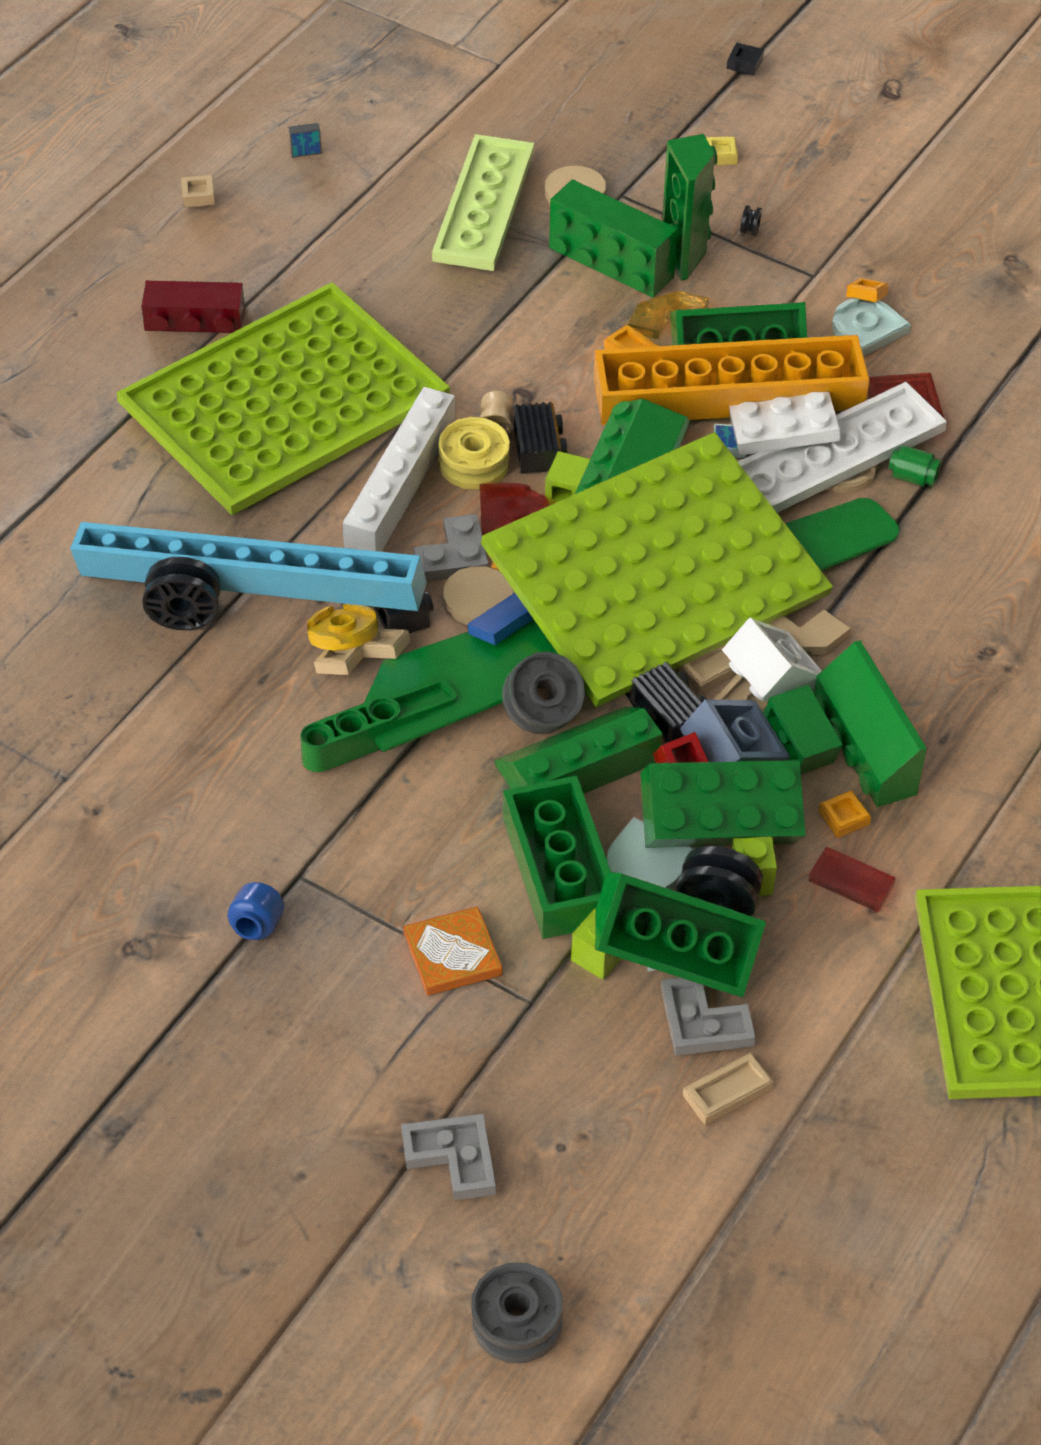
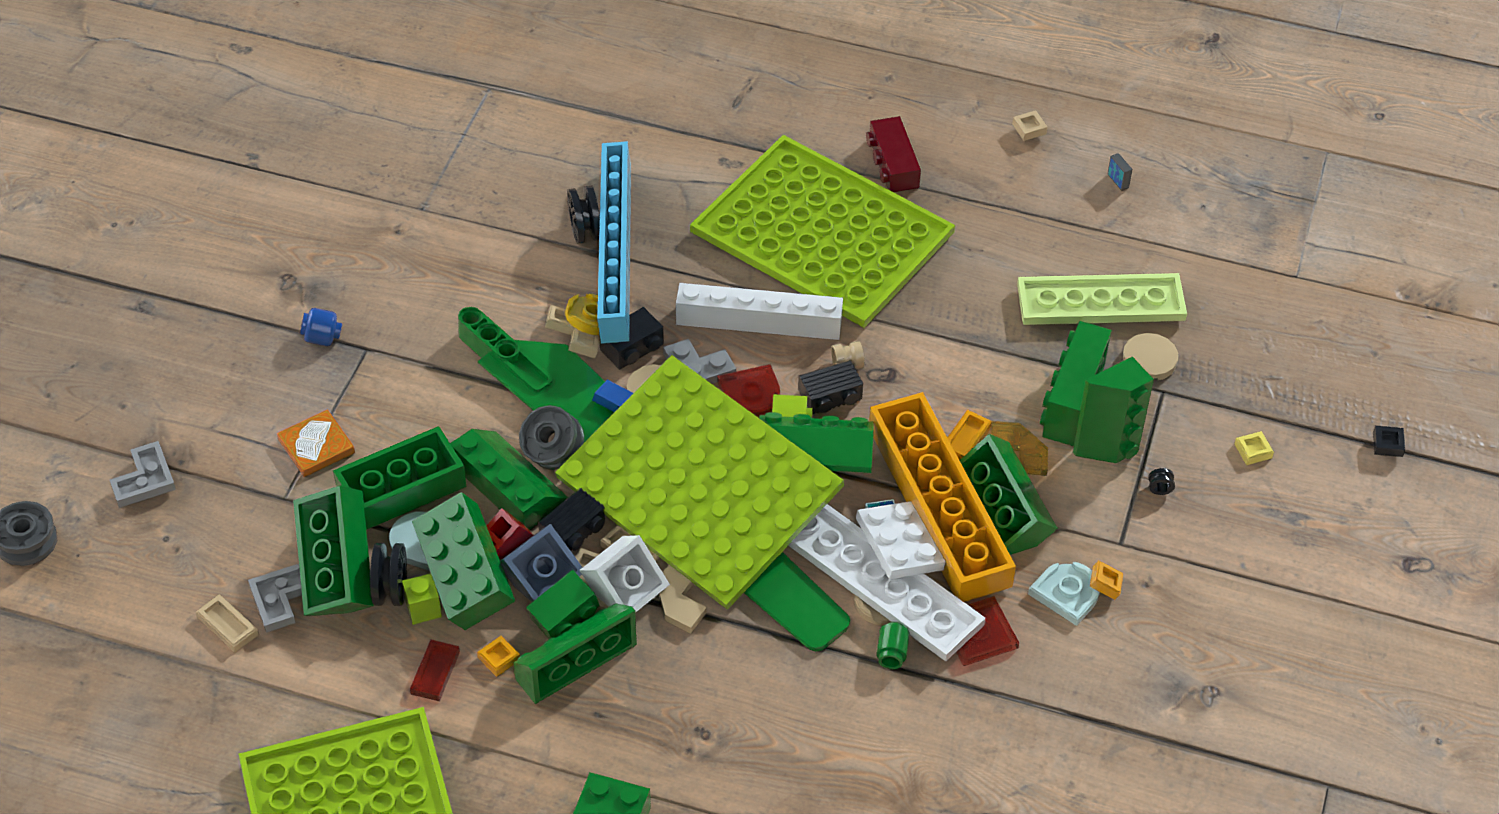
camera: 75 degrees right, 0 degrees up
(473, 452) = (798, 350): light yellow wheel -> none

